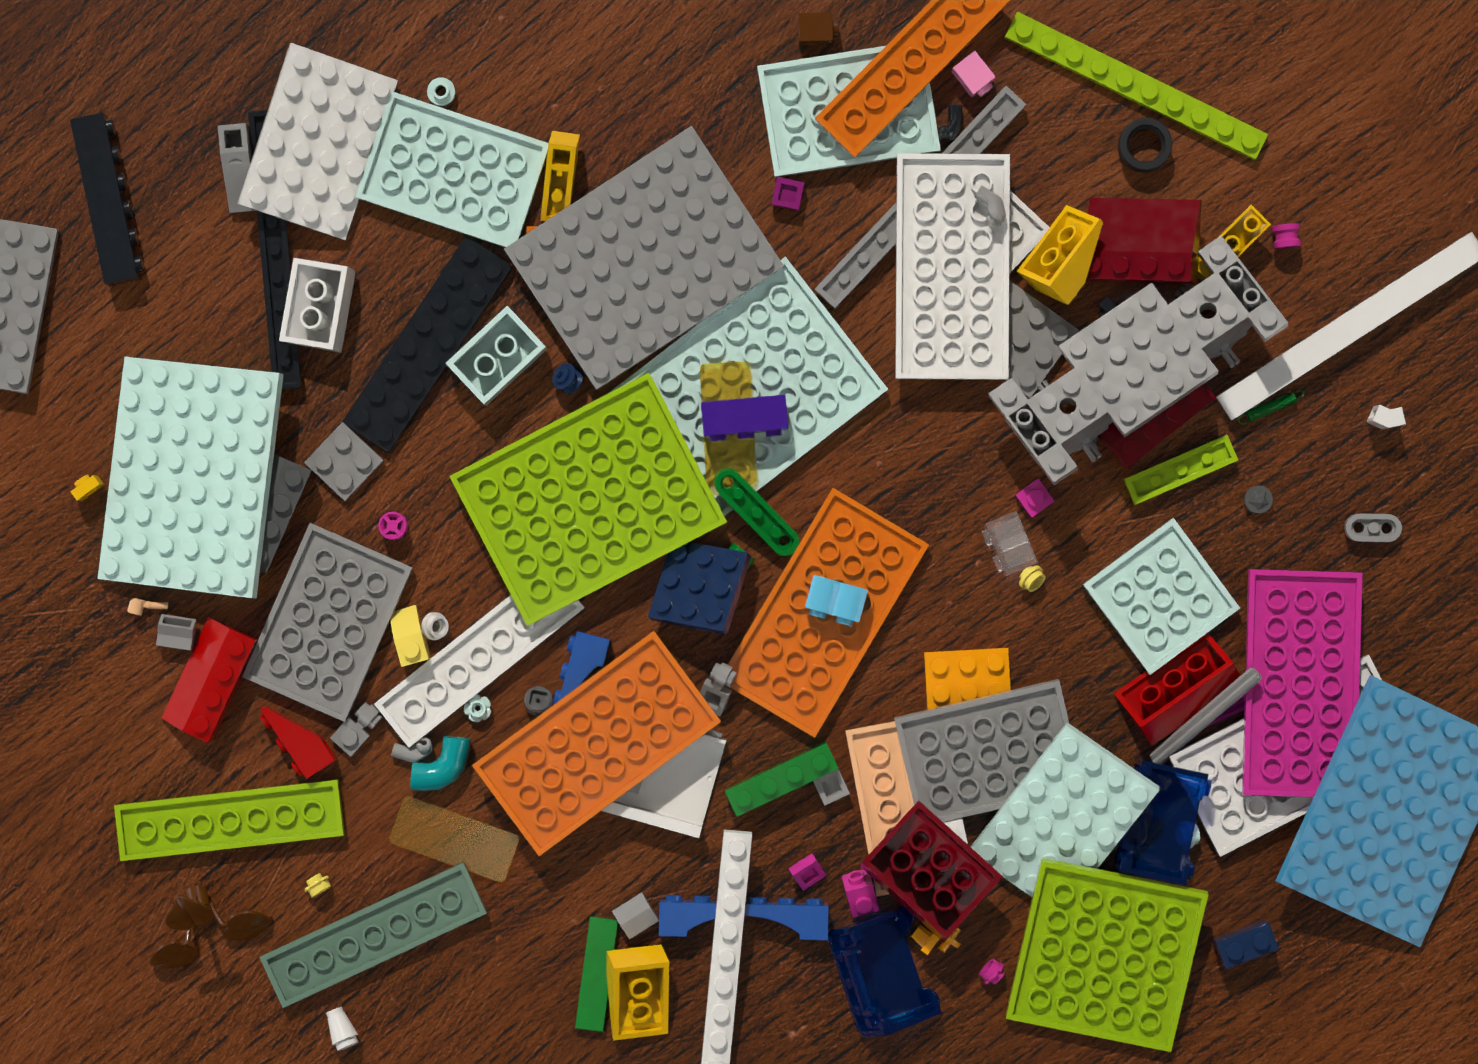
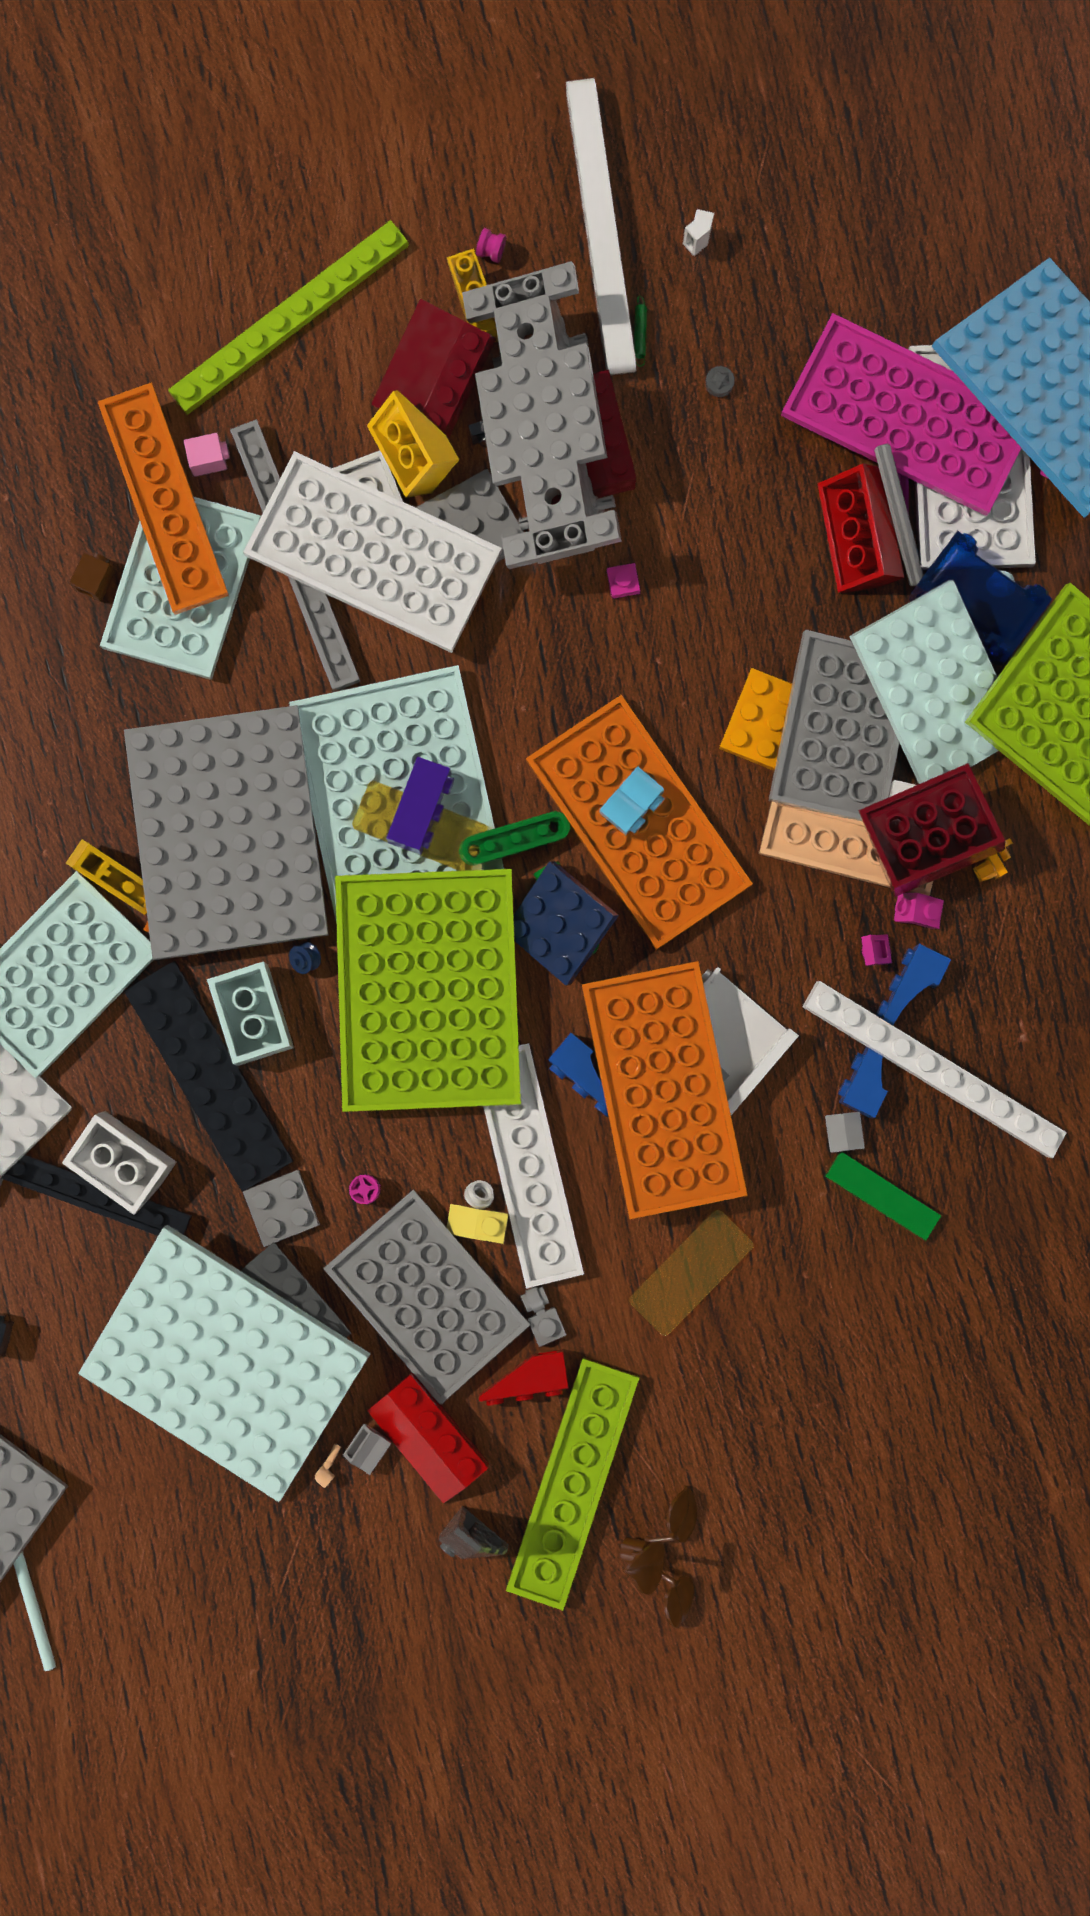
camera: 65 degrees left, 5 degrees down
(86, 486) = (185, 1470): yellow plate -> none
(143, 754) = (470, 1538): none -> dark grey wedge
(317, 885) = (675, 1426): light yellow plate -> none
(341, 1029) = (825, 1469): white cone -> none
(373, 934) = (748, 1395): sand green plate -> none
(415, 753) = (592, 1271): light grey arm -> none
(443, 770) = (620, 1248): teal cylinder -> none
(477, 716) = (576, 1198): light aqua plate -> none
(537, 700) = (596, 1129): dark grey tile -> none
(638, 991) = (918, 1162): yellow slope -> none
(715, 691) = (665, 955): light grey plate -> none
(781, 779) = (777, 933): green brick -> none
(787, 193) = (232, 673): magenta plate -> none
(831, 787) = (805, 890): light grey plate -> none
(881, 974) = (1006, 926): clear blue windscreen -> none
(954, 124) = (242, 493): black arm -> none
(992, 972) = (1048, 822): dark pink plate -> none
(995, 205) = (333, 483): light grey arm -> none
(1009, 543) = (655, 621): clear brick -> none
(1032, 578) = (696, 615): light yellow plate -> none
(1161, 596) = (768, 507): light aqua plate -> none
(1165, 138) = (343, 311): black tyre -> none
(1180, 469) = (659, 436): lime plate -> none
(1372, 526) = (792, 292): light grey plate -> none

